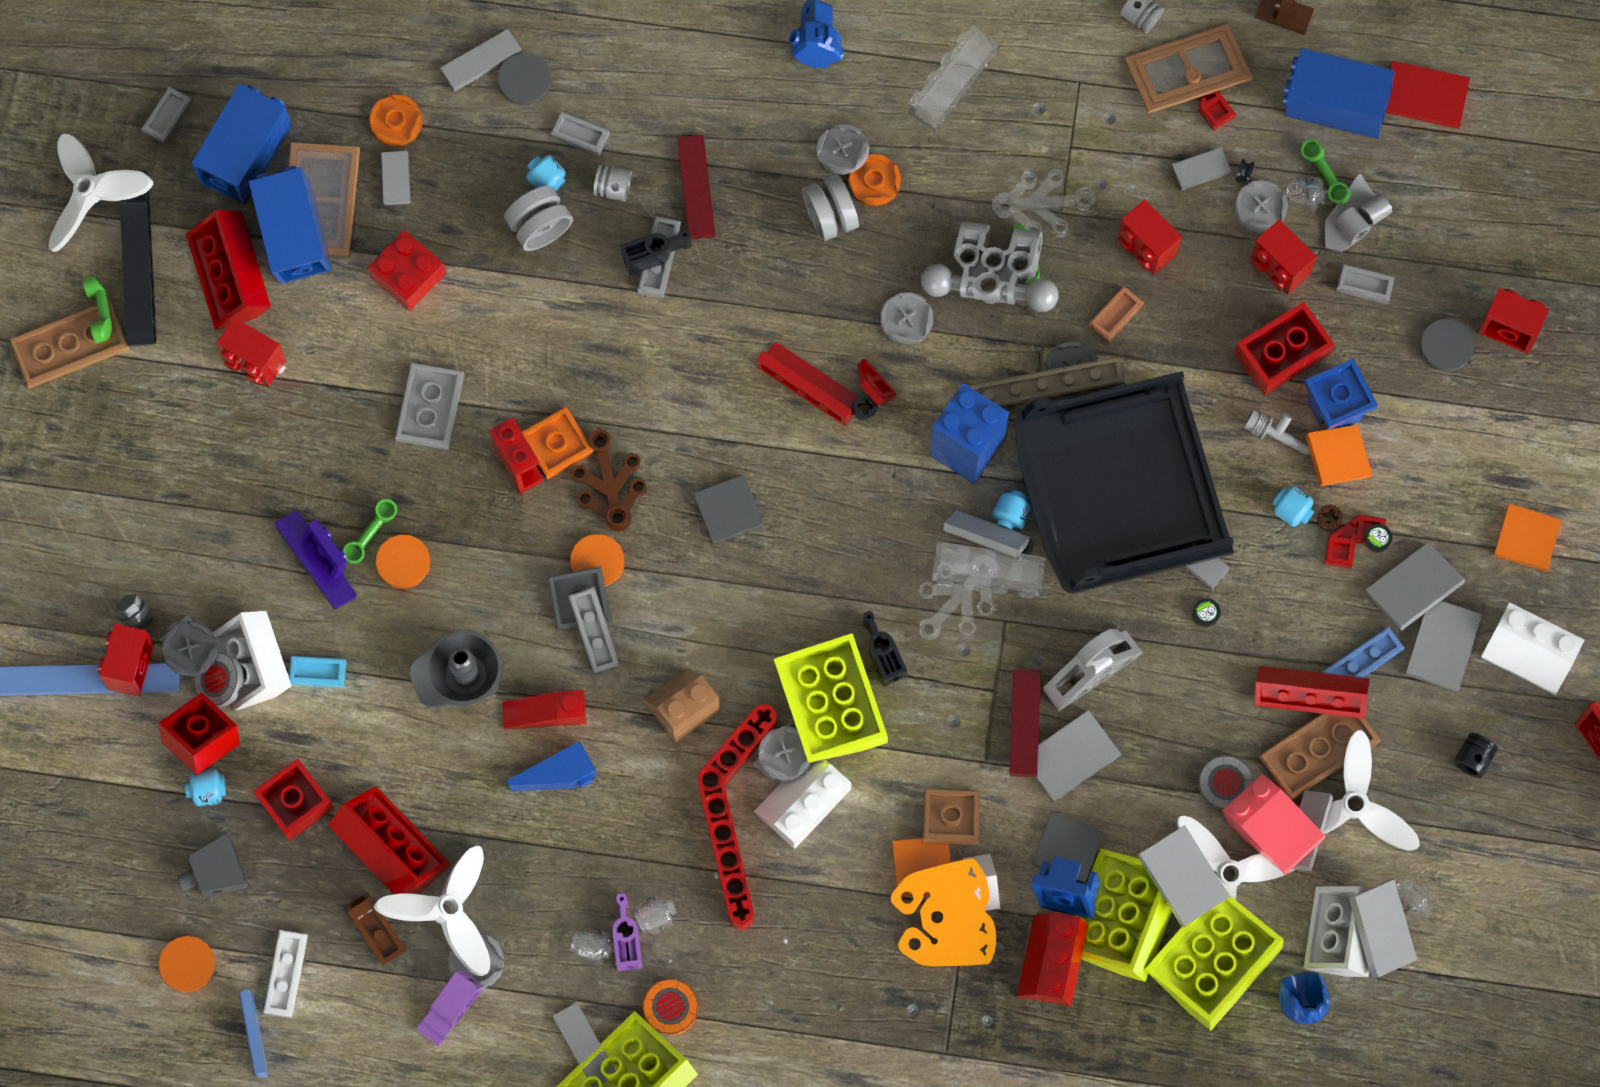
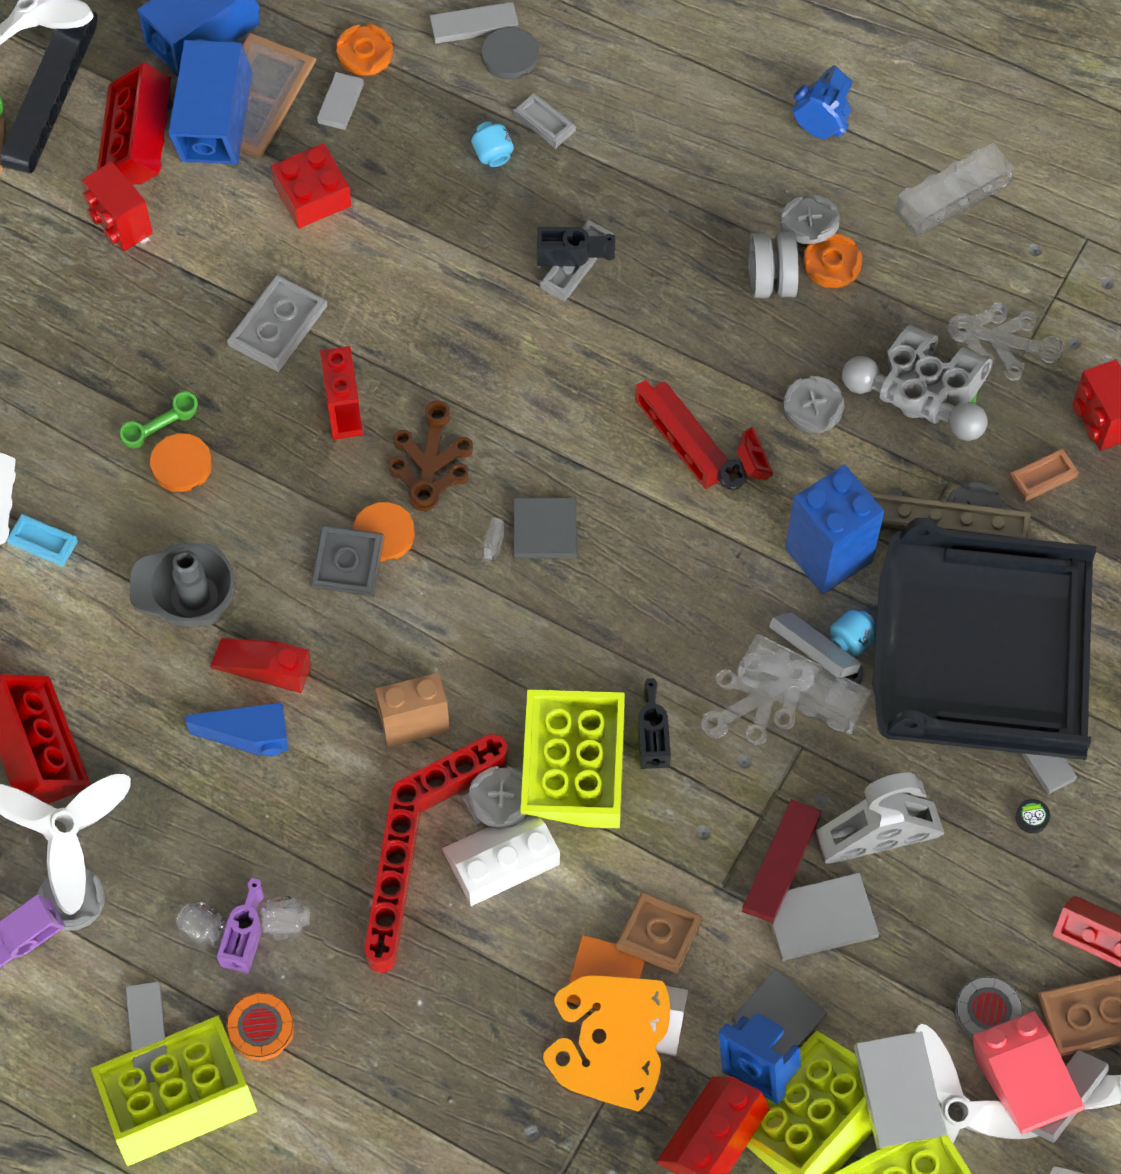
camera: 20 degrees right, 10 degrees down
(318, 556) = (94, 426): dark purple bracket -> none
(538, 218) = (465, 177): light grey wheel -> none
(557, 442) = (392, 401): orange tile -> none
(594, 630) = (348, 597): light grey tile -> none
(612, 183) = (556, 172): light grey piece -> none
(691, 535) = (494, 538): none -> clear tile
(696, 187) = (642, 207): dark red tile -> none

